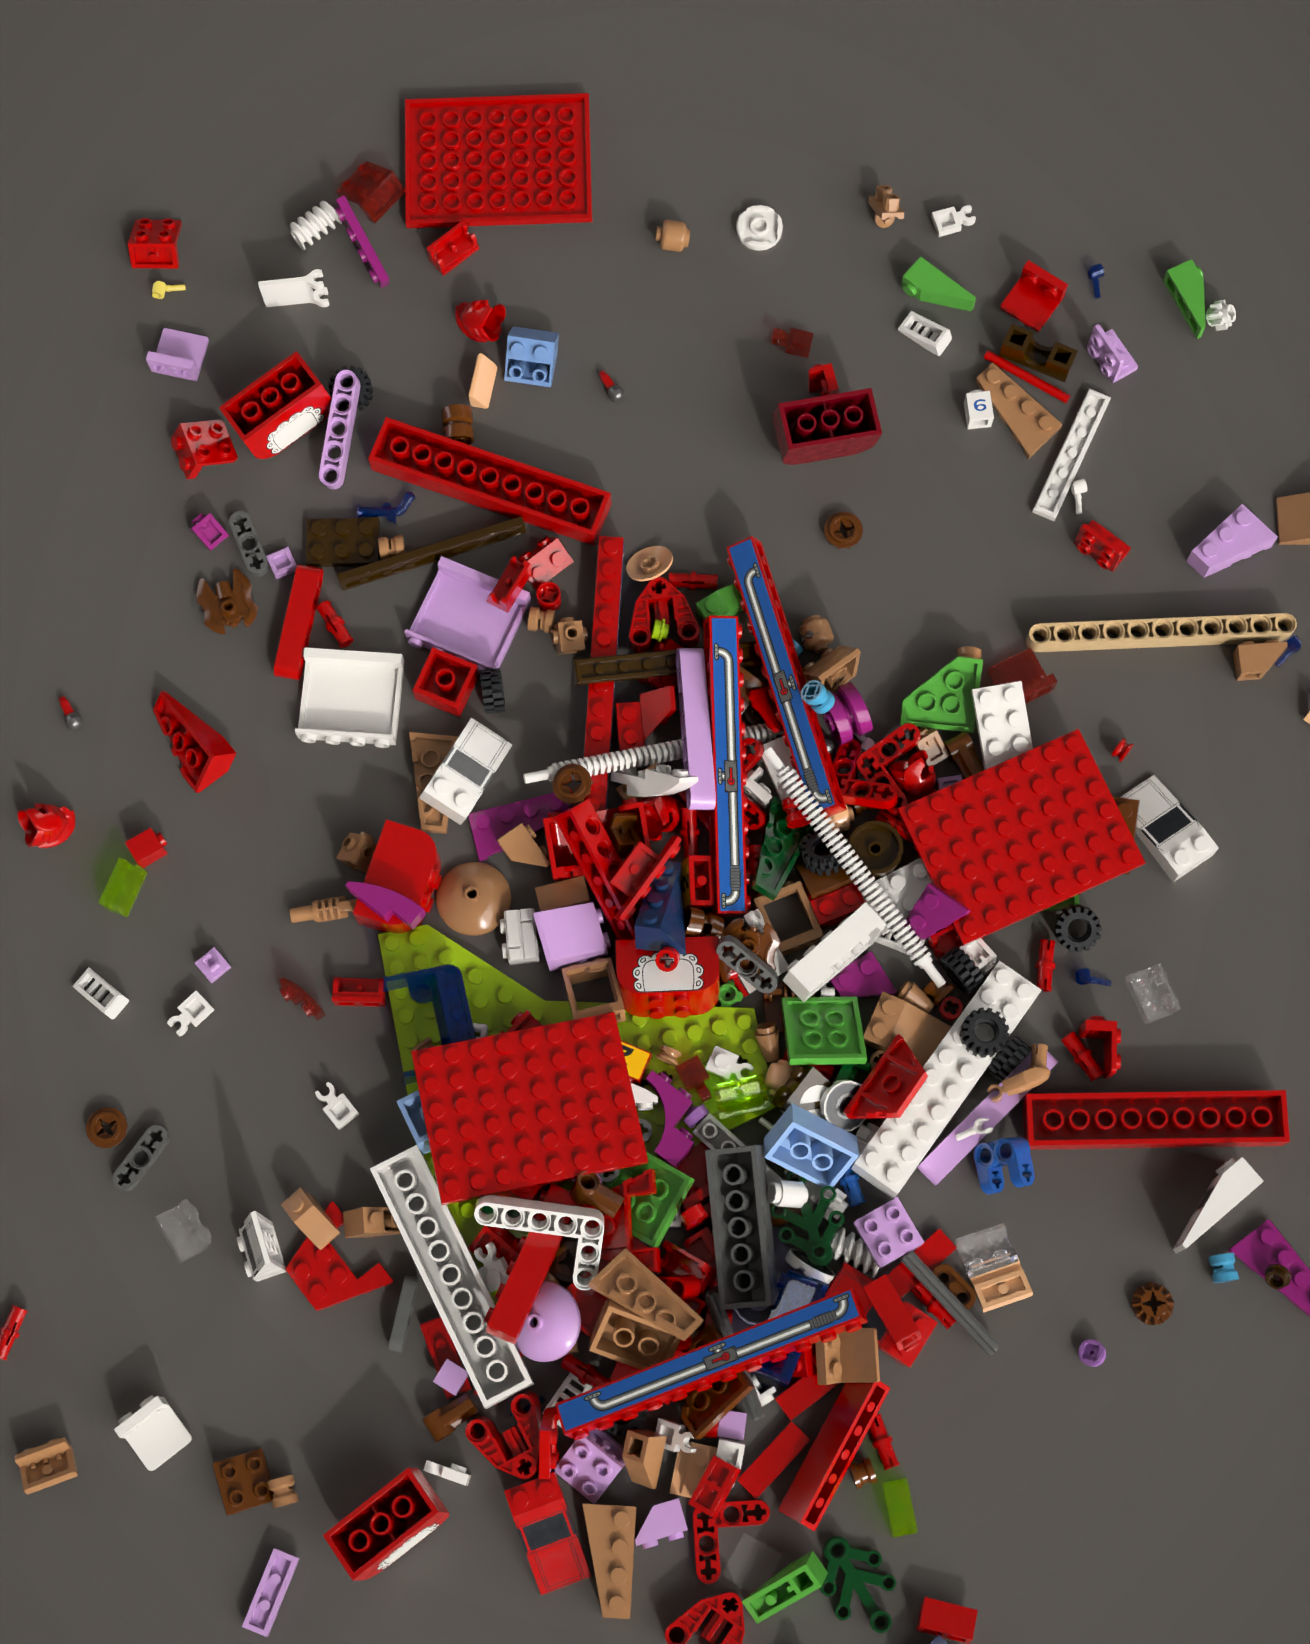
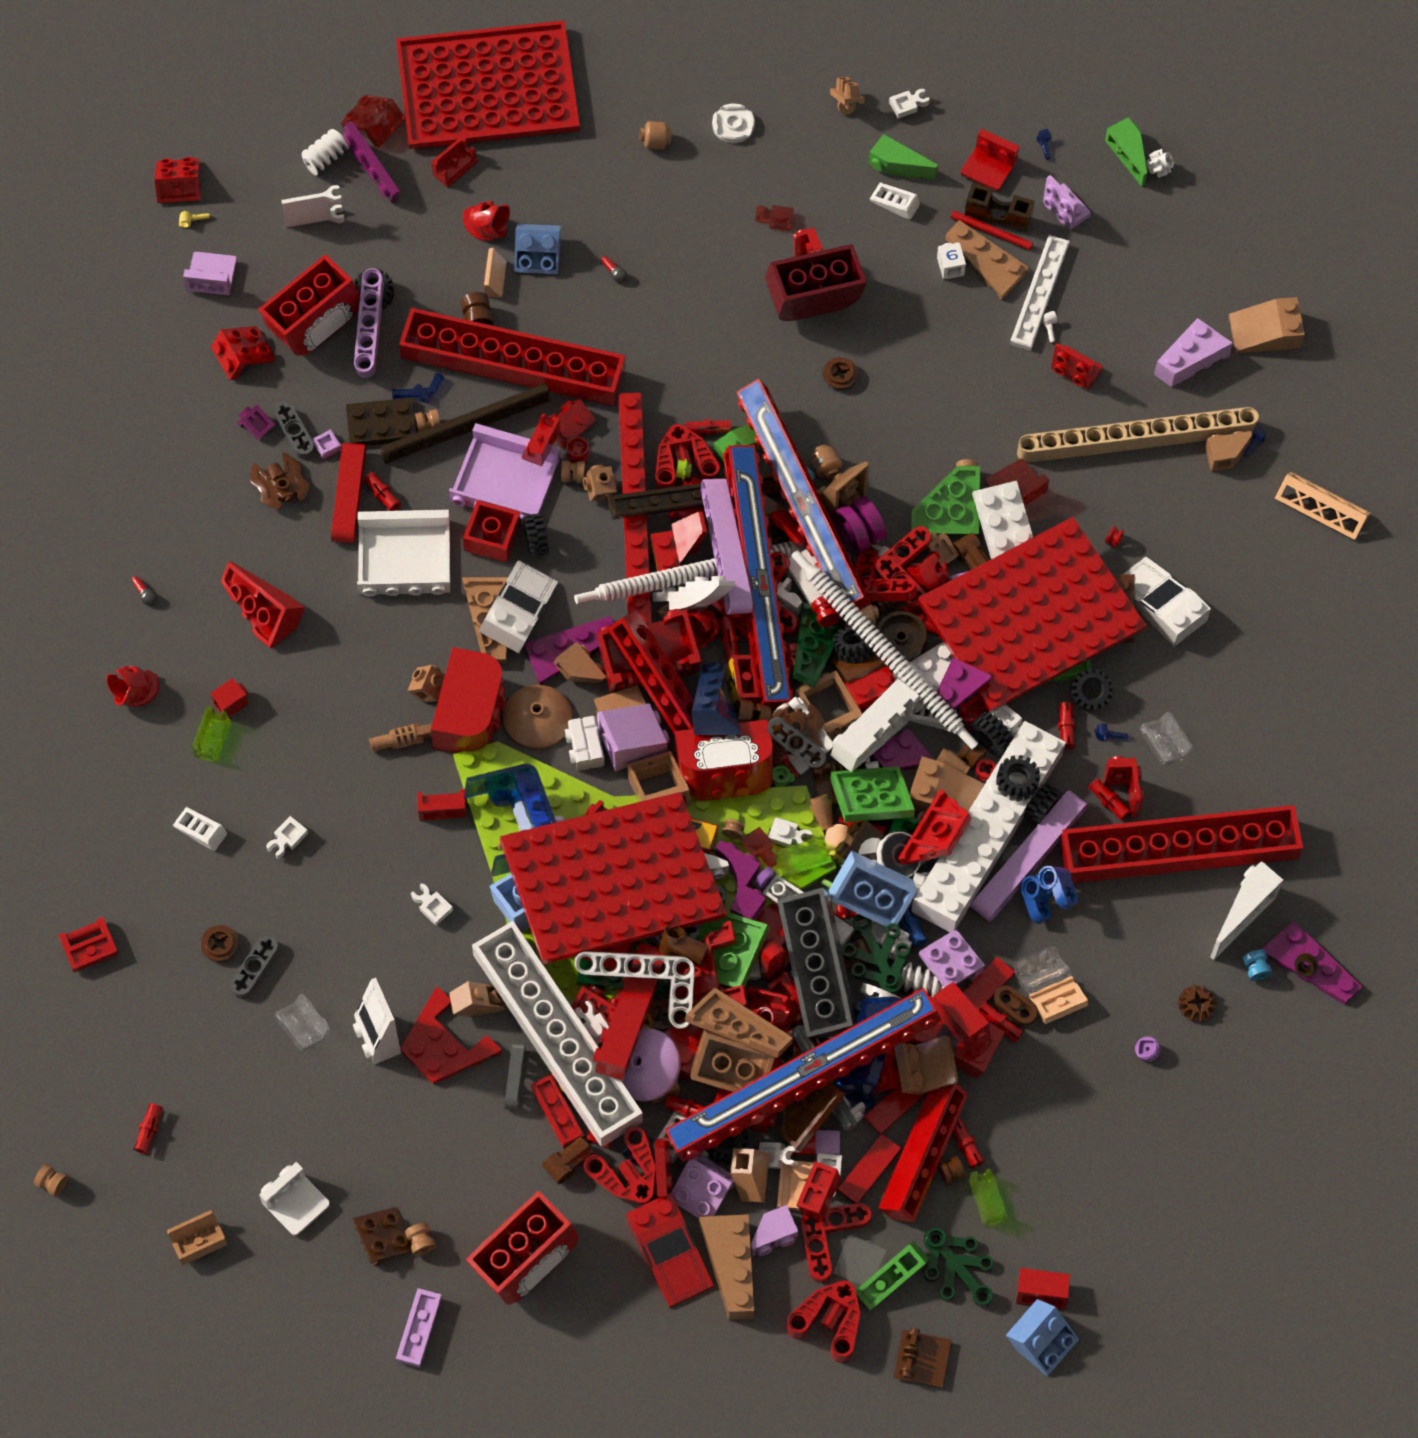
camera: 10 degrees left, 10 degrees down
(212, 965) = (302, 795): lavender tile -> none
(293, 992) = (385, 811): clear red slope -> none
(310, 1218) = (419, 999): medium nougat slope -> none
(387, 903) = (462, 715): magenta slope -> none
(451, 1377) = (565, 1124): lavender tile -> none
(454, 1473) = (574, 1208): white plate -> none
(564, 776) = (613, 593): reddish brown gear -> none
(623, 832) = (670, 640): reddish brown bracket -> none
(639, 871) = (688, 669): red bracket -> none
(649, 563) = (666, 415): light nougat dish -> none
(673, 953) = (720, 744): red bush -> none
(787, 1193) = (856, 932): white brick -> none
(817, 696) = (834, 506): dark azure wheel -> none
(950, 1303) = (1014, 1016): dark grey axle -> none
(977, 1128) = (1021, 863): white hand -> none
(1027, 1079) = (1059, 816): medium nougat arm -> none

